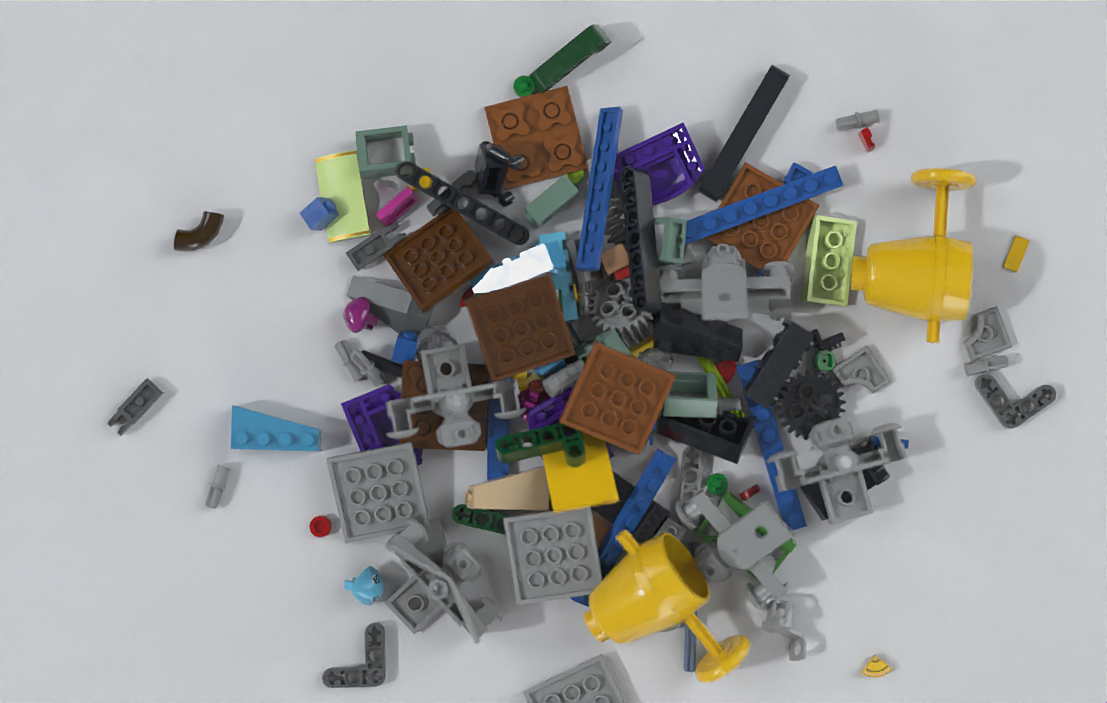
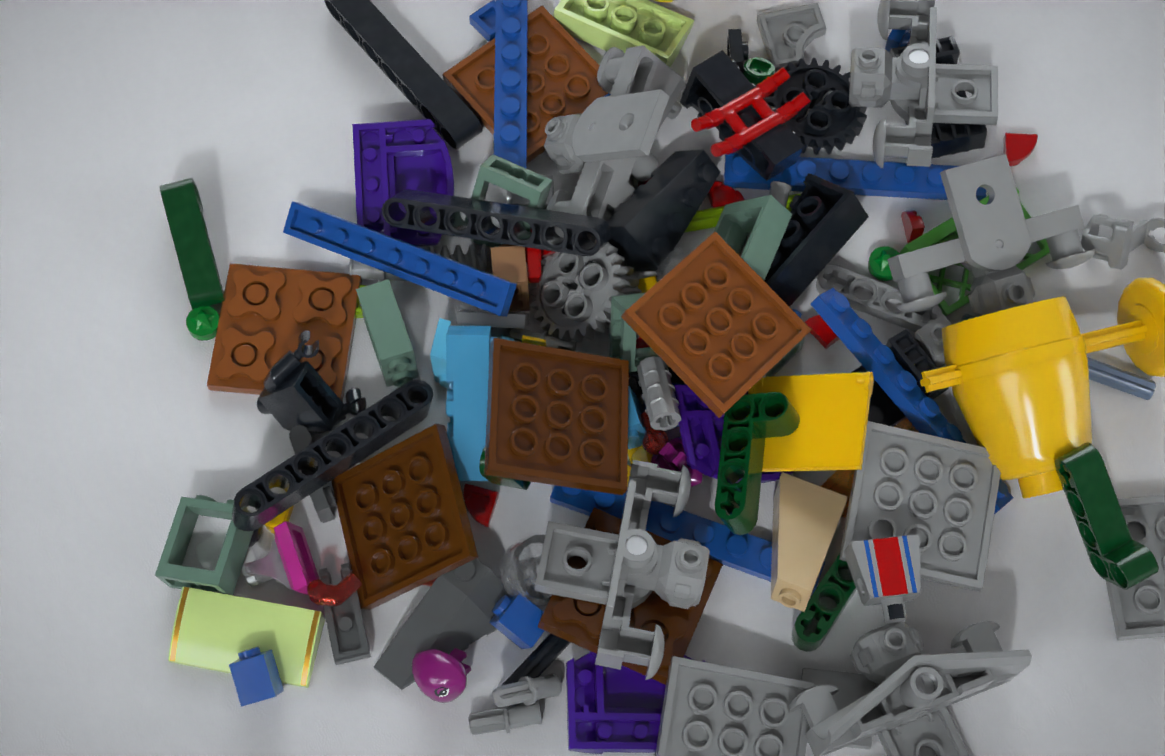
camera: 70 degrees left, 20 degrees down
(381, 236) = (330, 594): none -> clear red arm
(499, 547) = (886, 573): none -> torso
(579, 662) = (1101, 519): none -> dark green beam
(774, 382) = (755, 98): none -> red piece
(830, 542) = (1018, 146): none -> red tile

